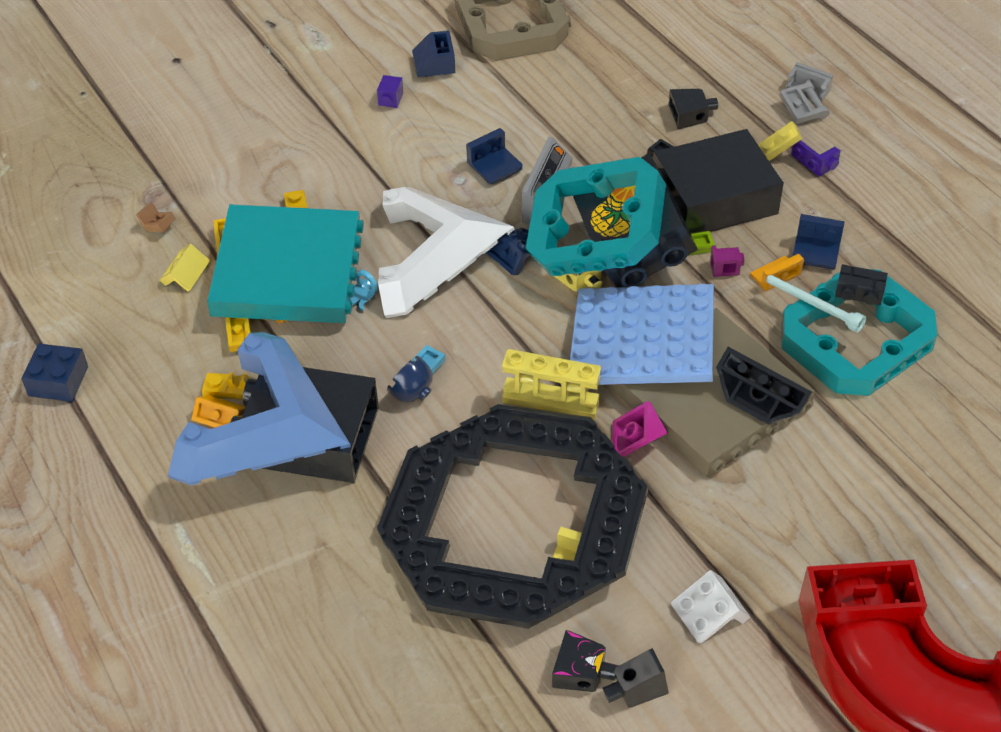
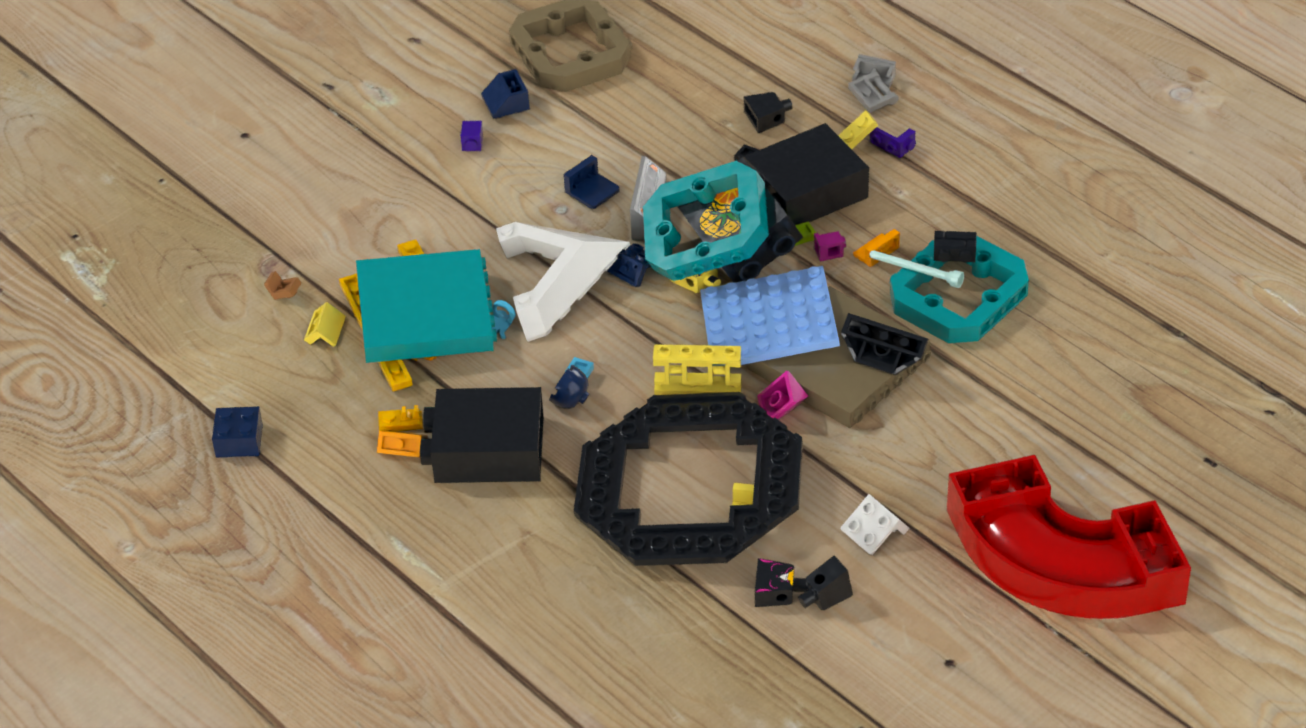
camera: 10 degrees left, 5 degrees down
(292, 430) = (476, 441): medium blue wedge -> none
(818, 241) = (910, 215): dark blue bracket -> none

